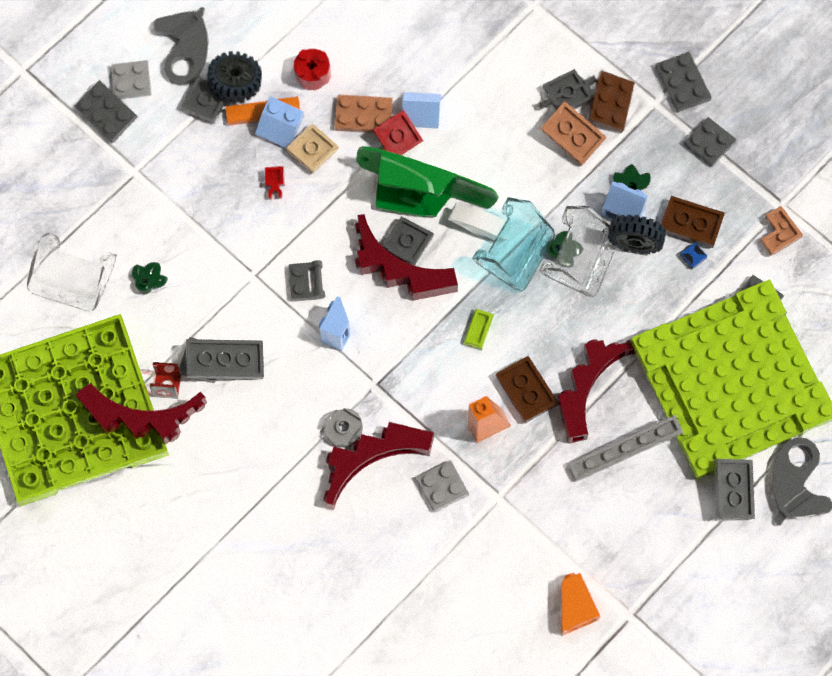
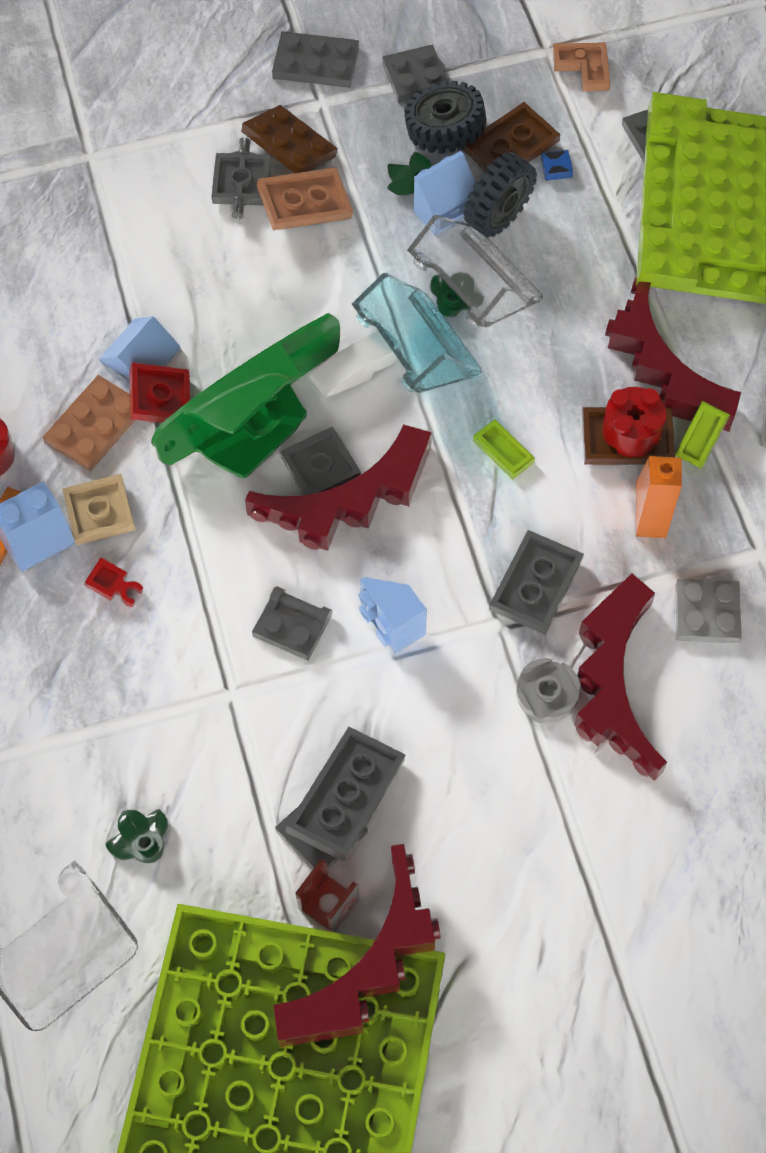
camera: 60 degrees left, 5 degrees down
(404, 388) = (536, 582): none -> dark grey plate
(529, 374) = (634, 421): none -> red brick
(549, 427) = (702, 435): none -> lime tile
(682, 175) = (445, 116): none -> black wheel

